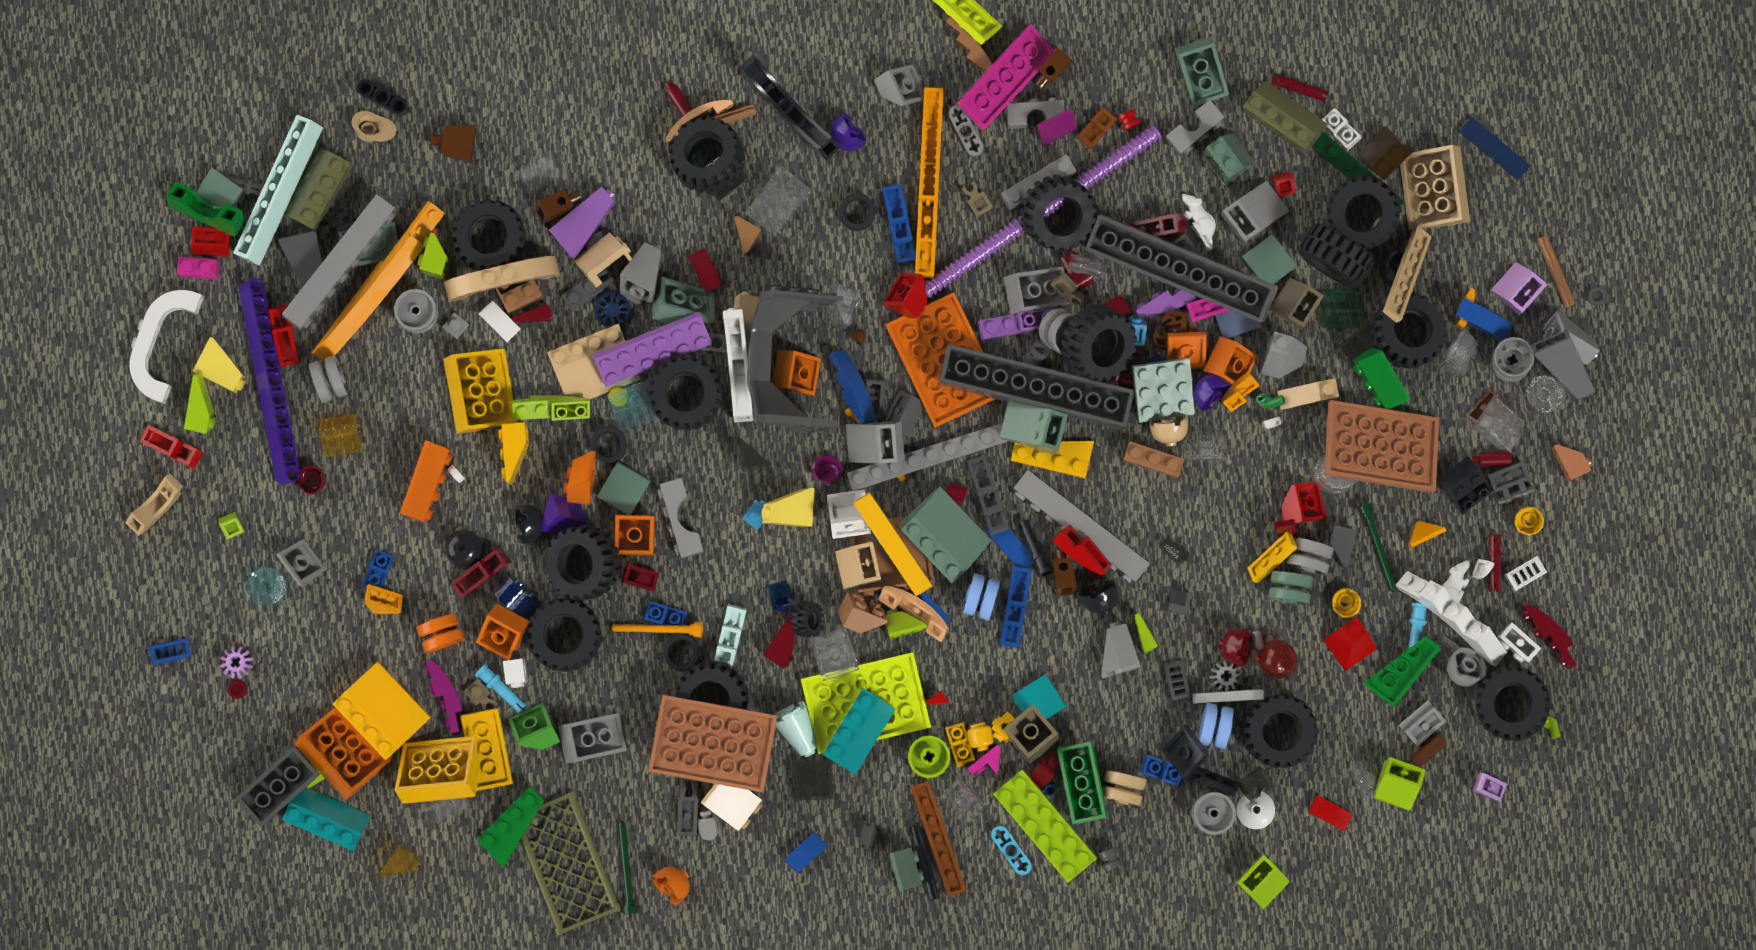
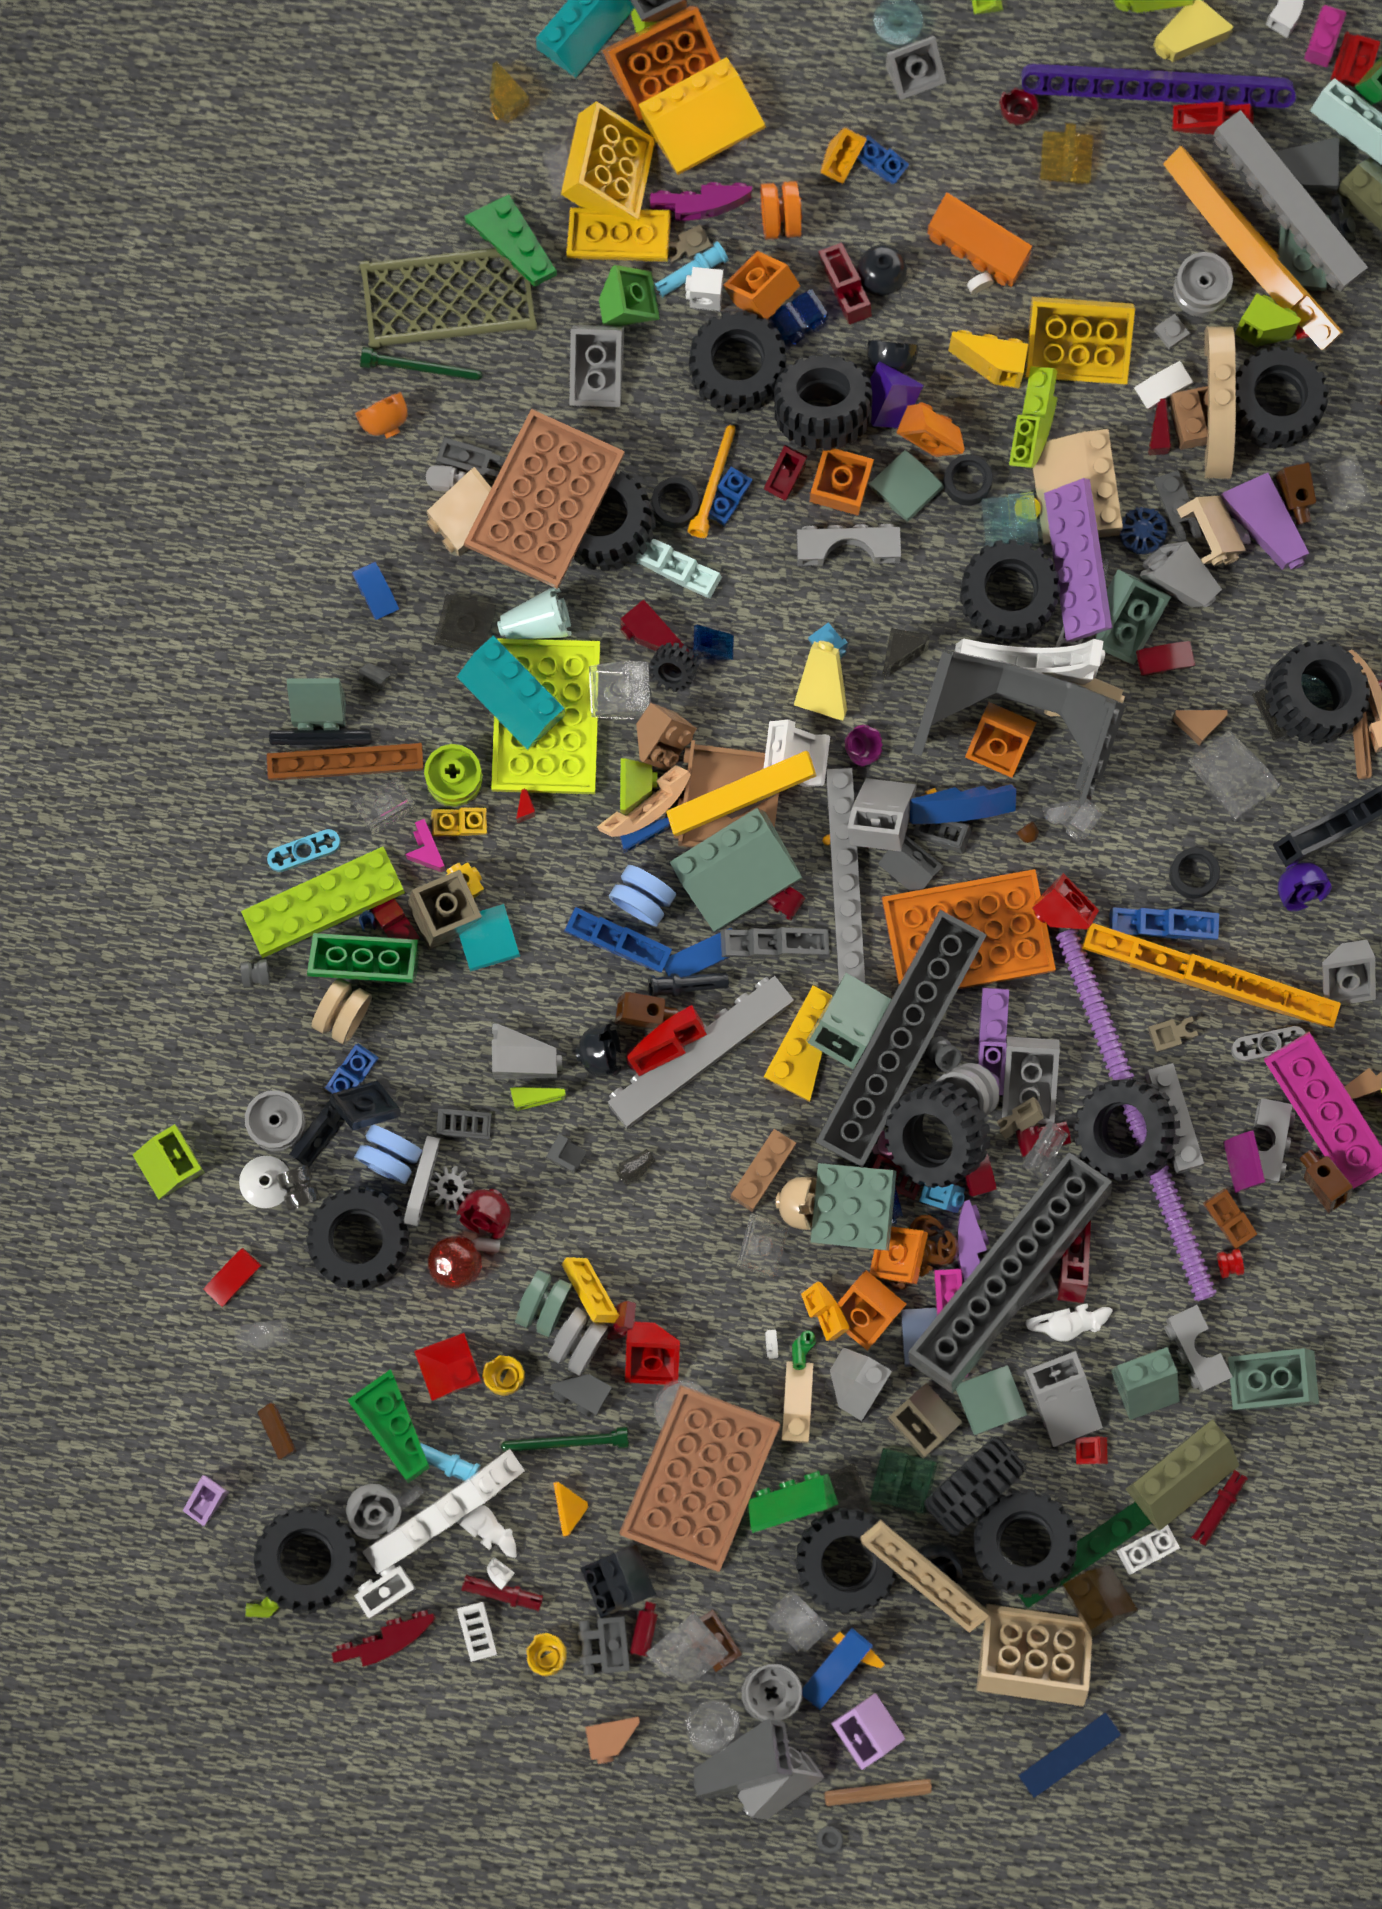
camera: 105 degrees right, 5 degrees down
(328, 379) = (1142, 154): light grey wheel -> none
(858, 565) = (726, 750): tan slope -> none
(980, 736) = (461, 848): yellow head -> none
(1209, 390) = (836, 1267): dark purple cylinder -> none
(1399, 783) = (243, 1377): lime slope -> none
(1422, 723) = (315, 1433): light grey plate -> none

